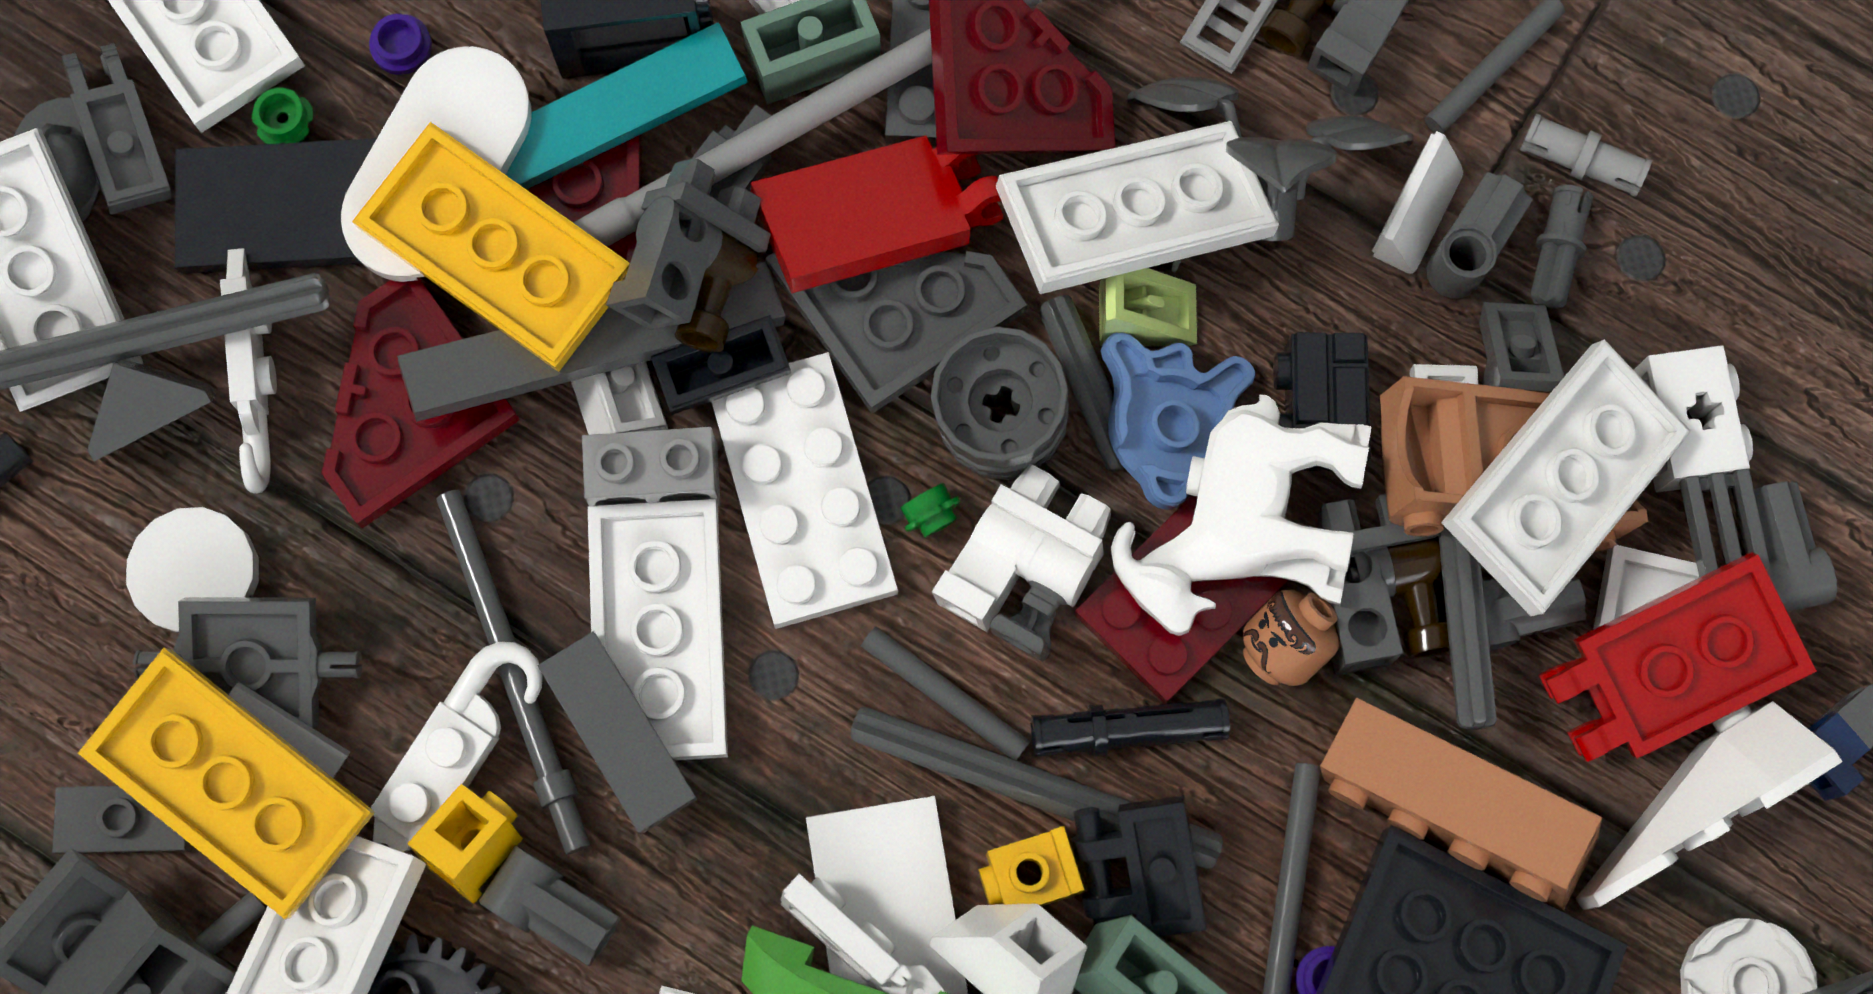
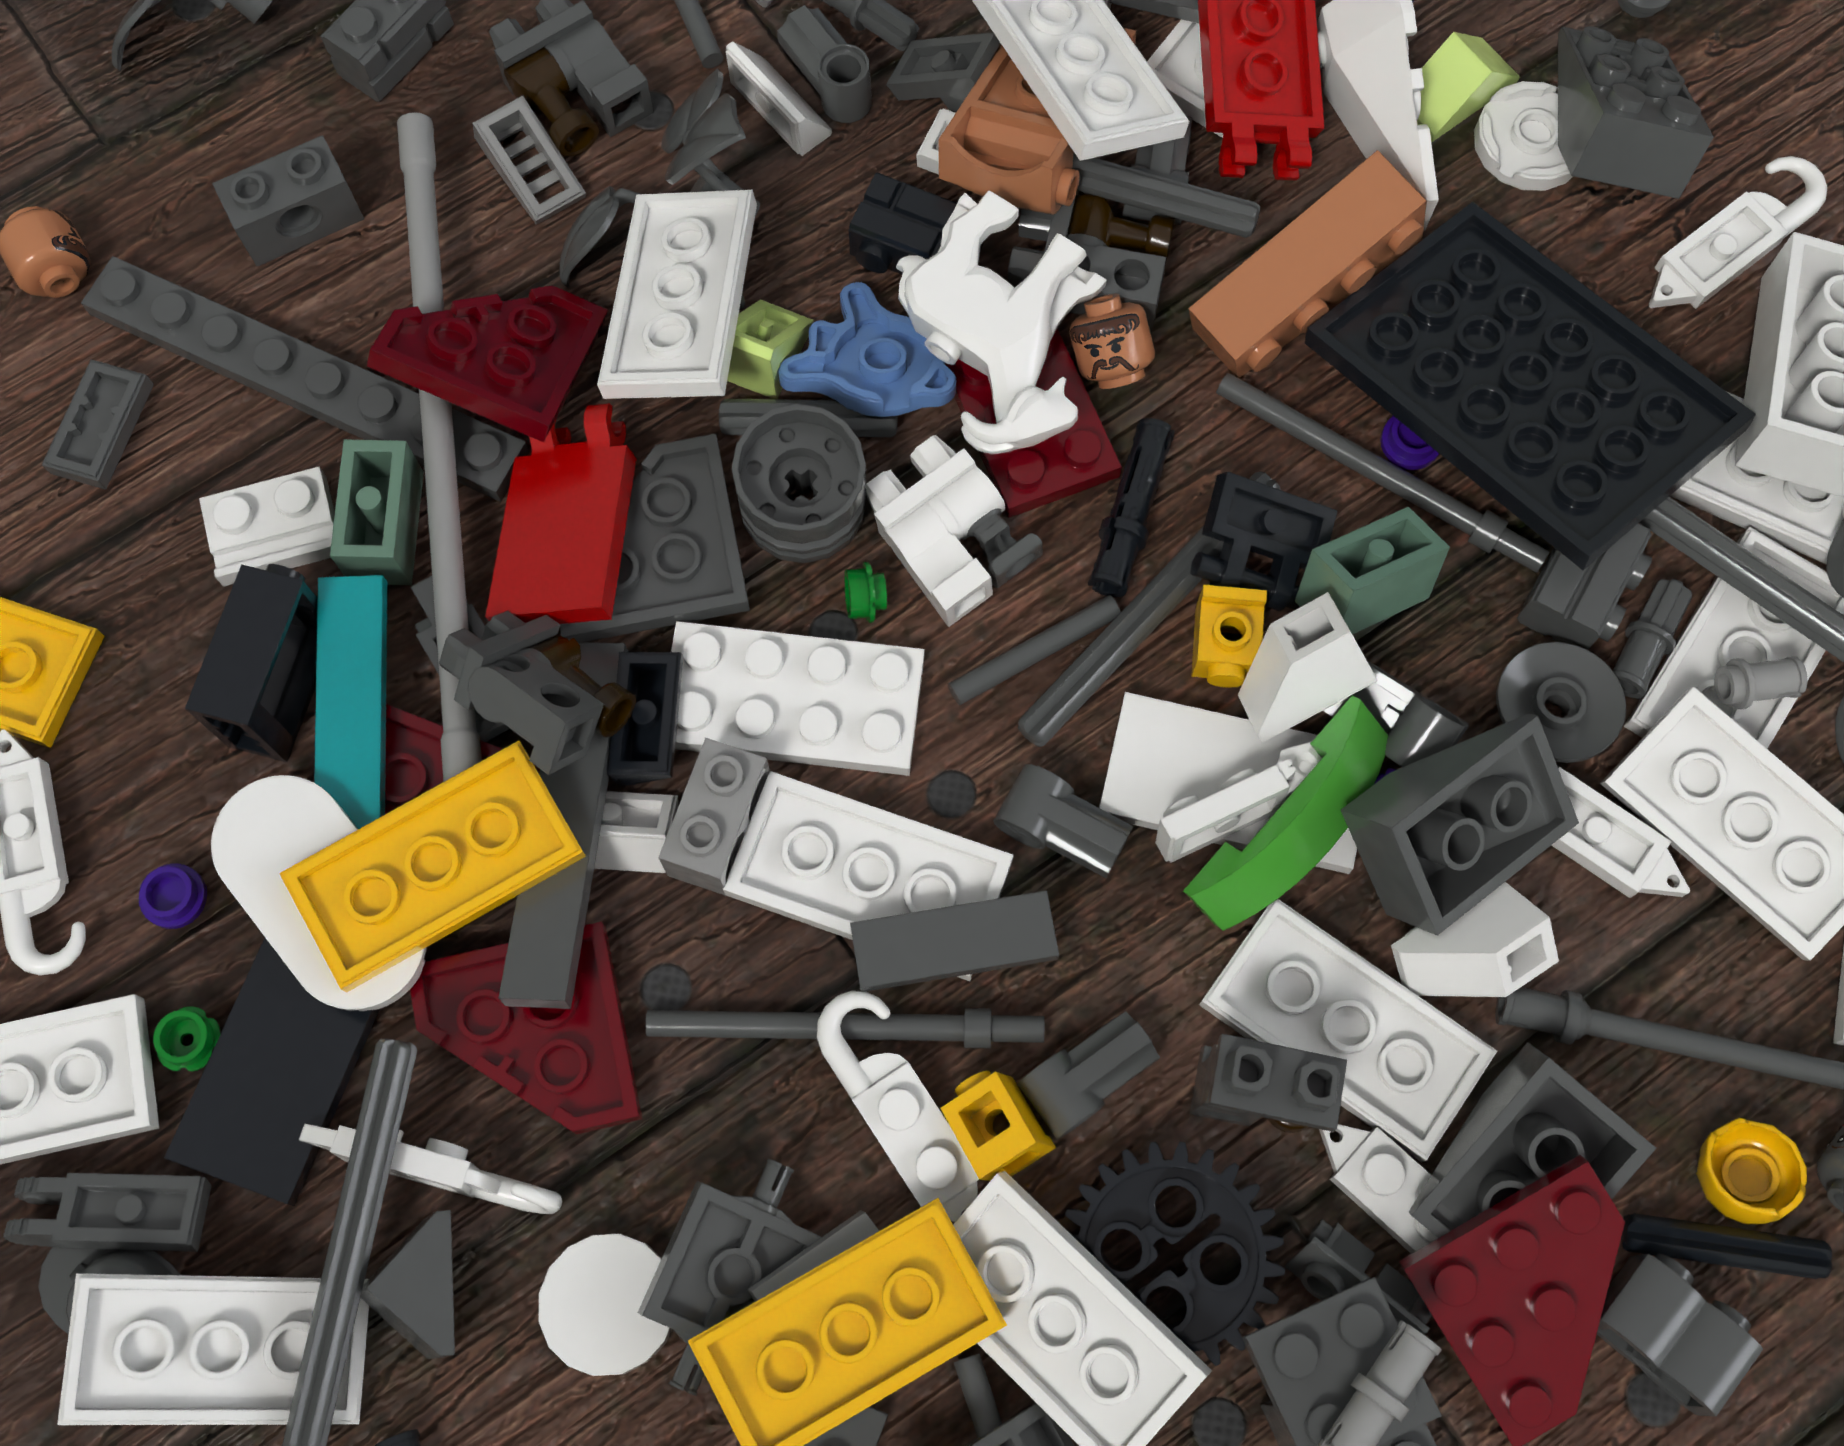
camera: 65 degrees left, 5 degrees down
(781, 770) = (1048, 814): none -> dark grey piece
(1770, 881) = (1460, 82): none -> yellowish green slope

